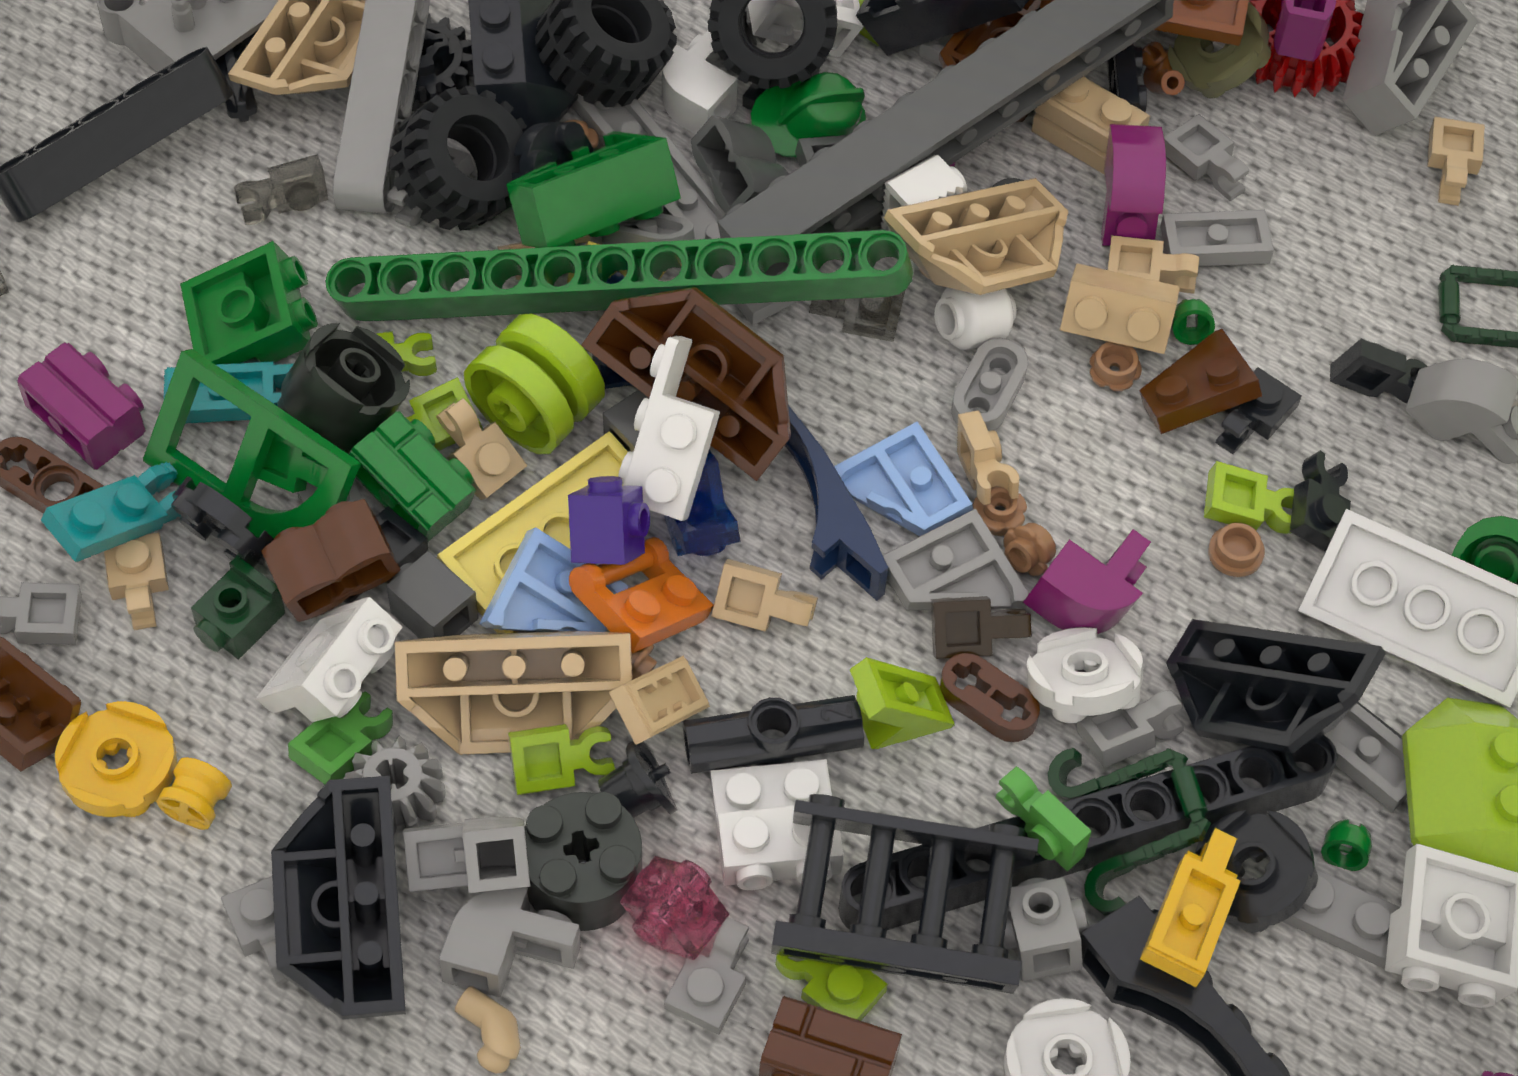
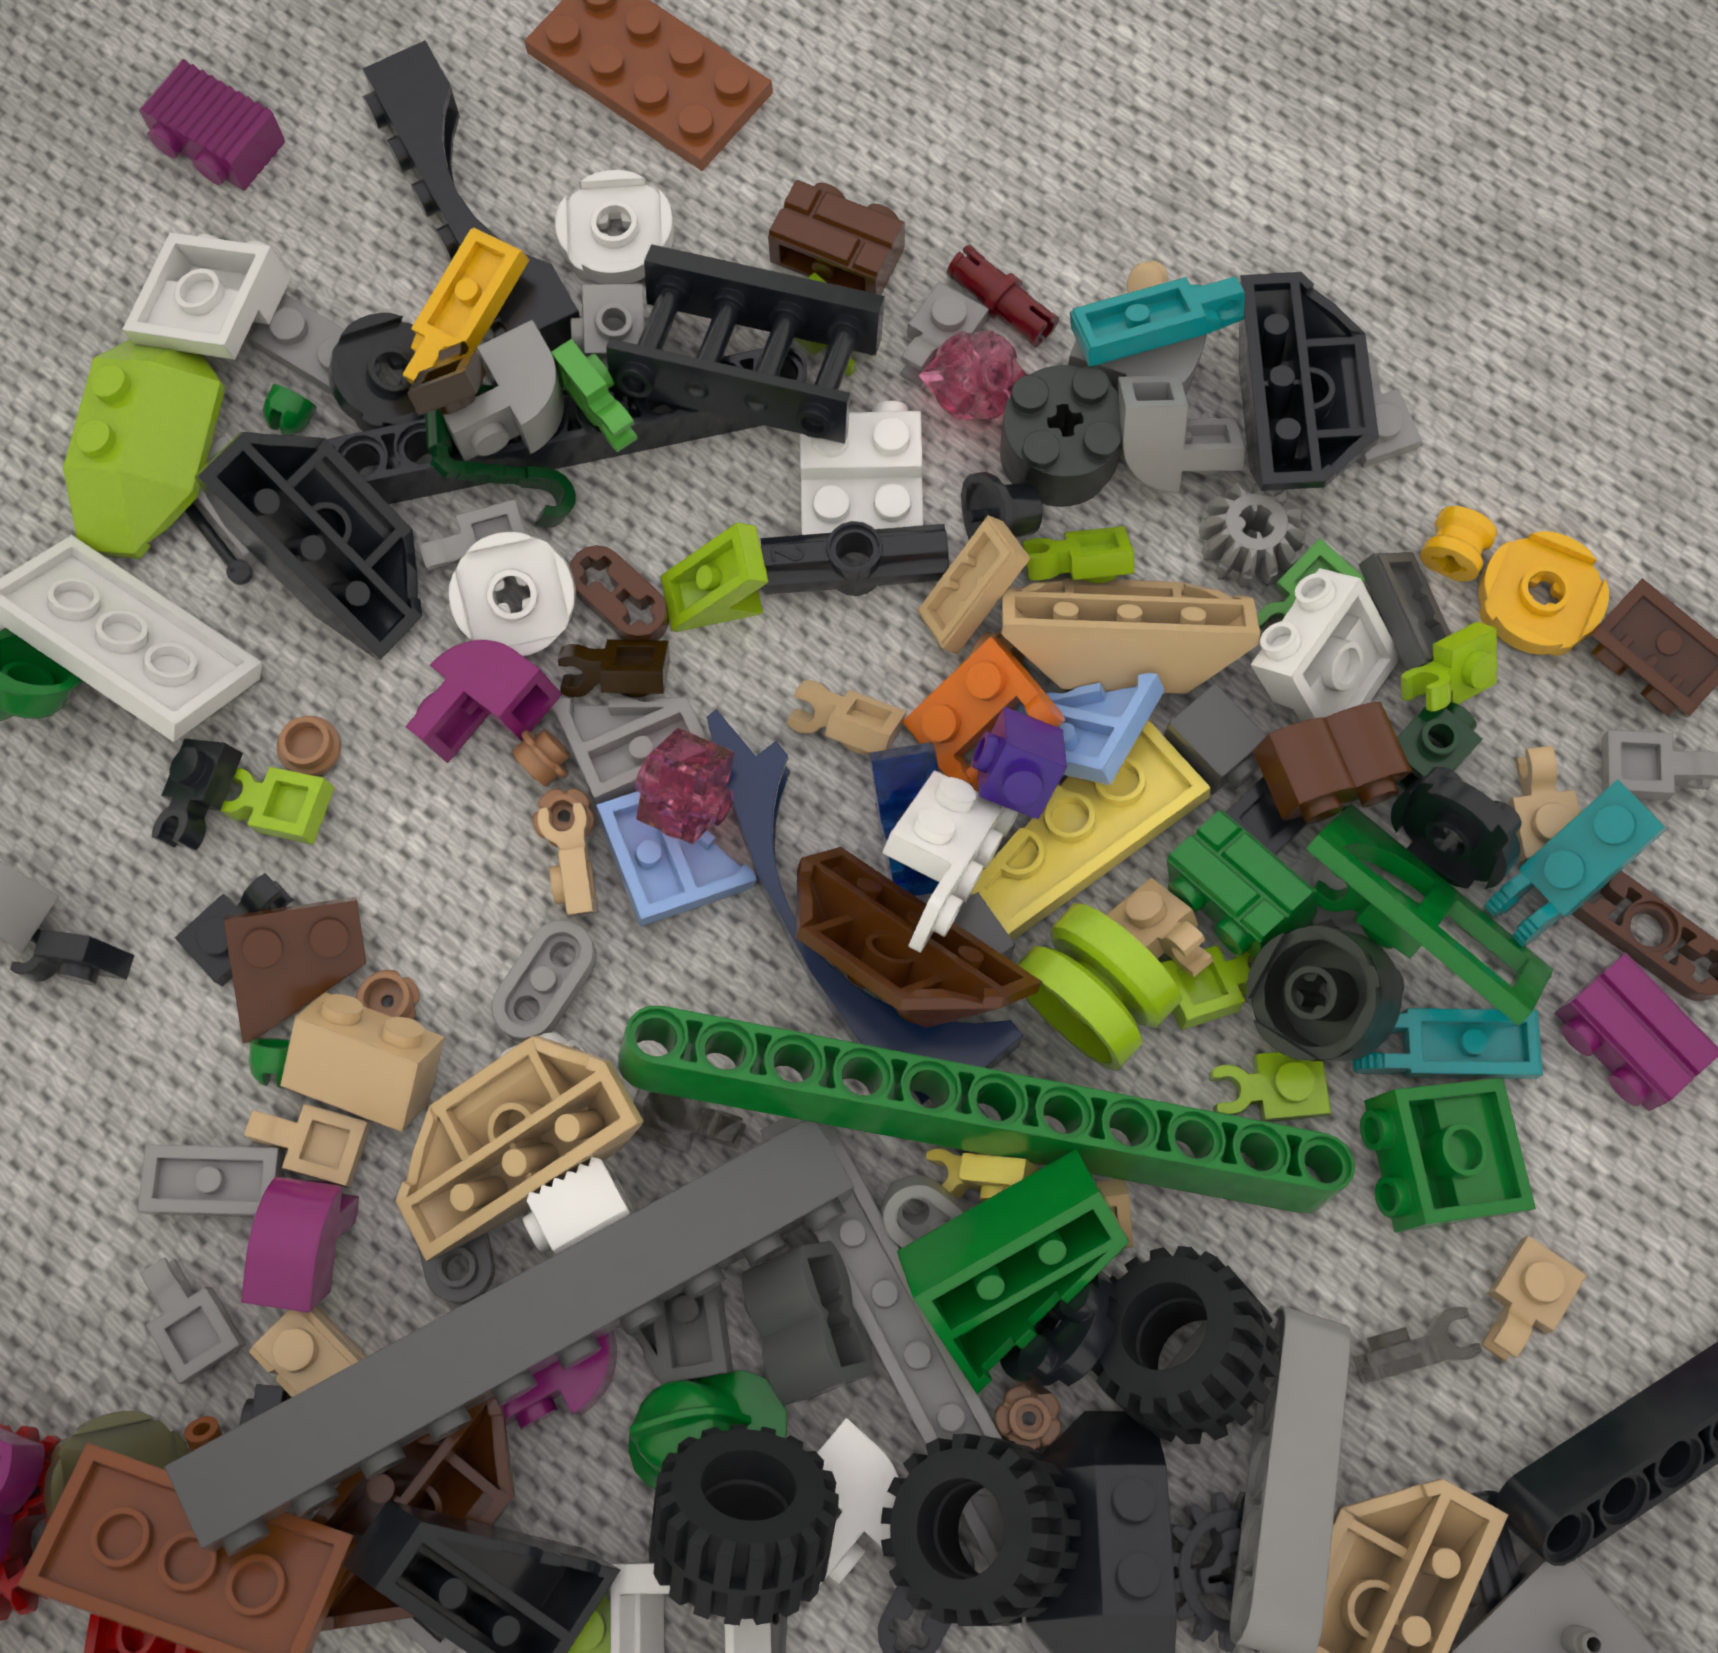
camera: 170 degrees left, 15 degrees up
(189, 241) = (1535, 1292): none -> tan plate
(200, 673) = (1459, 670): none -> lime plate
(246, 728) = (1405, 605): none -> dark grey plate
(497, 942) = (1155, 317): none -> teal hinge
(650, 1022) = (1002, 295): none -> dark red pin
(886, 515) = (685, 786): none -> clear pink brick
(1116, 812) = (523, 398): none -> light grey brick
(1178, 787) = (449, 383): none -> dark brown plate

